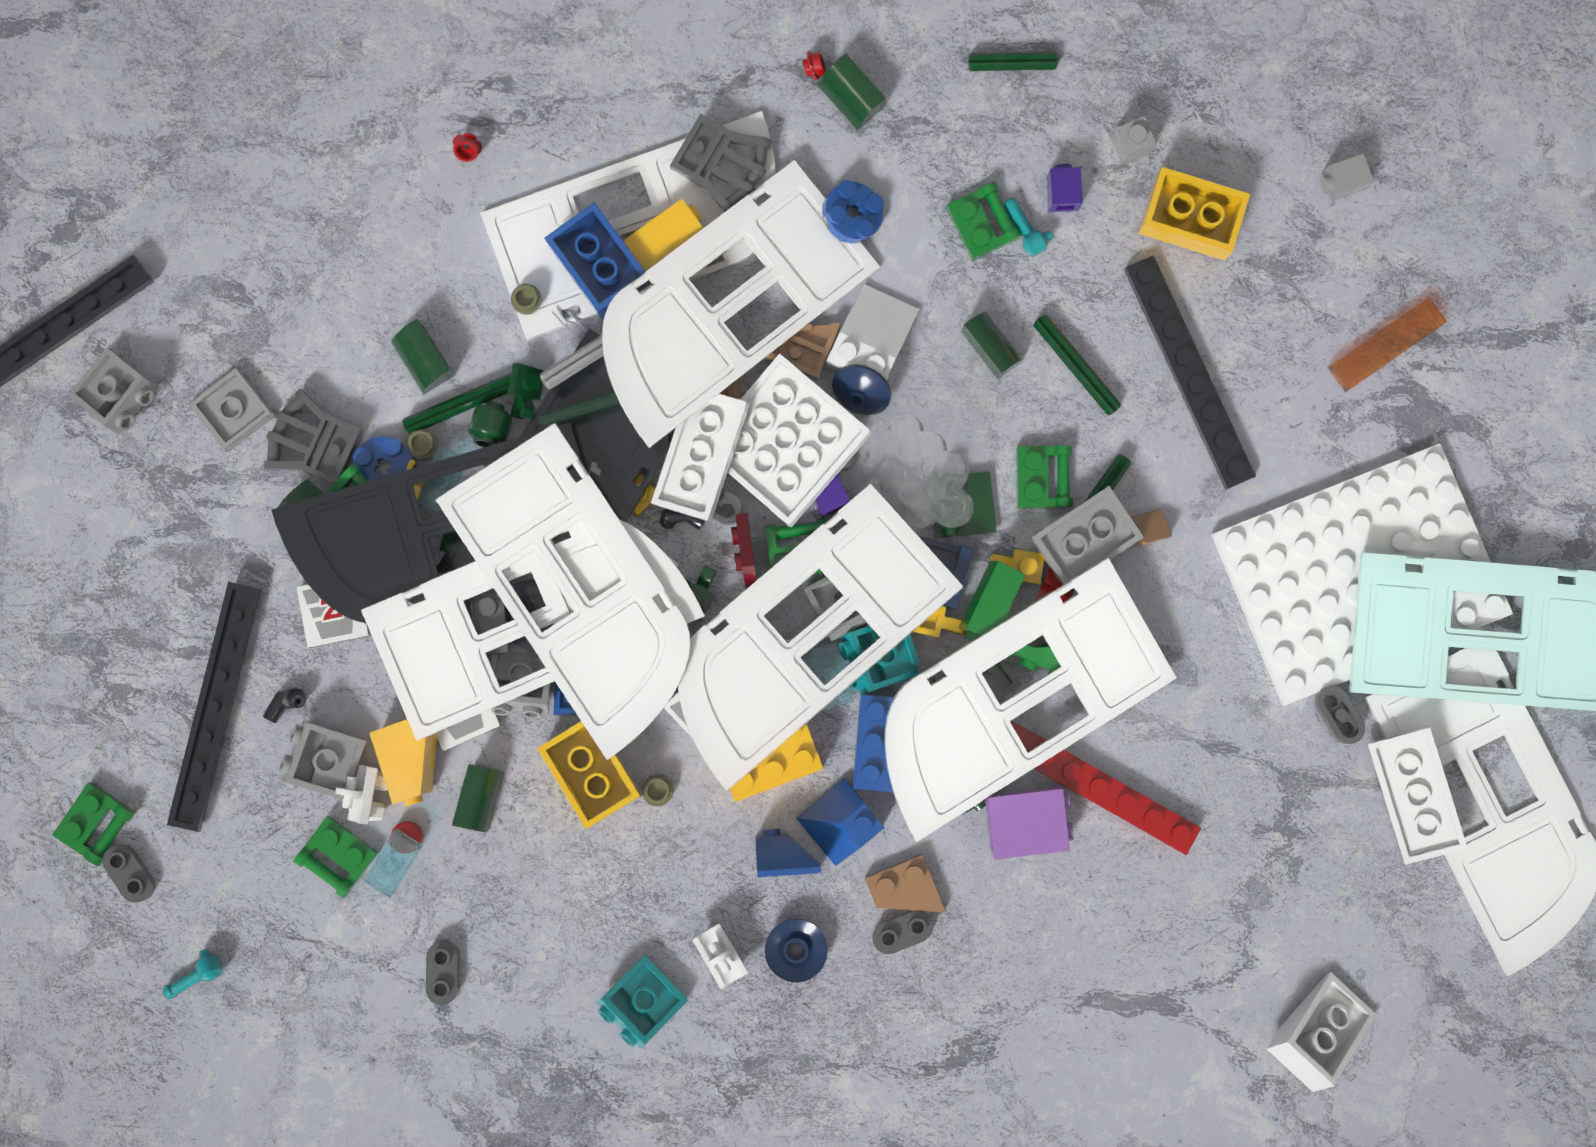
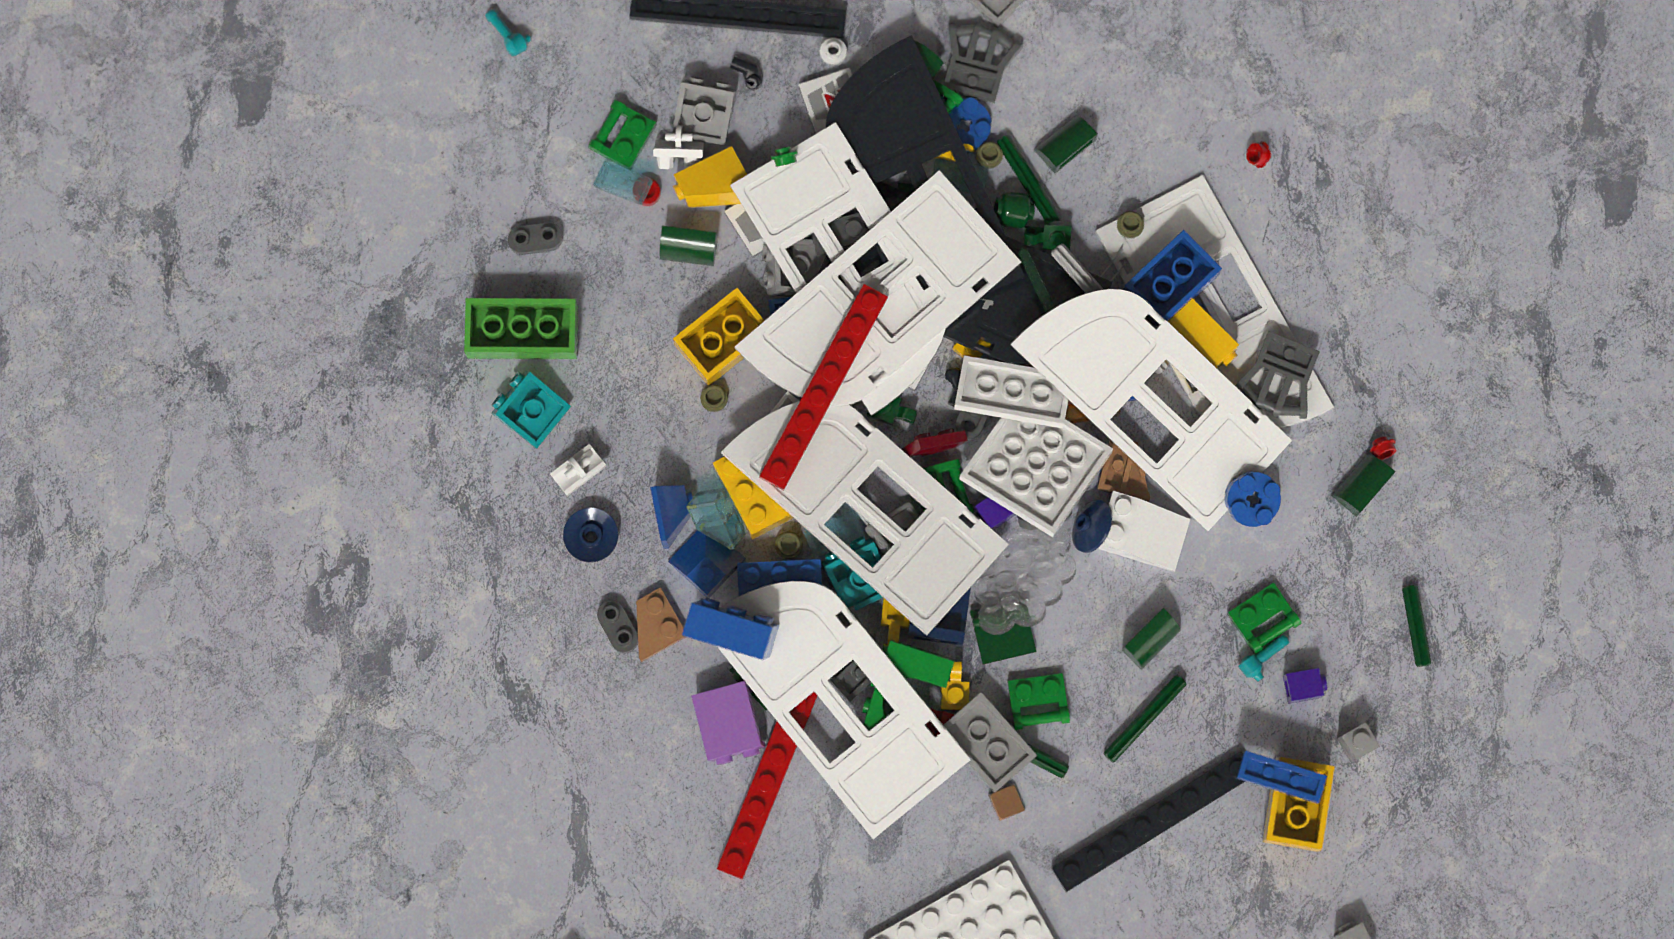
camera: 85 degrees right, 5 degrees down
(283, 606) = (836, 58): none -> white plate
(393, 673) = (784, 156): none -> green plate
(547, 1002) = (521, 328): none -> bright green brick
(668, 664) = (823, 387): none -> red plate
(795, 805) = (716, 517): none -> clear light blue slope
(835, 728) = (788, 545): none -> olive plate
(935, 806) = (731, 628): none -> blue brick
(1170, 223) = (1281, 777): none -> blue plate

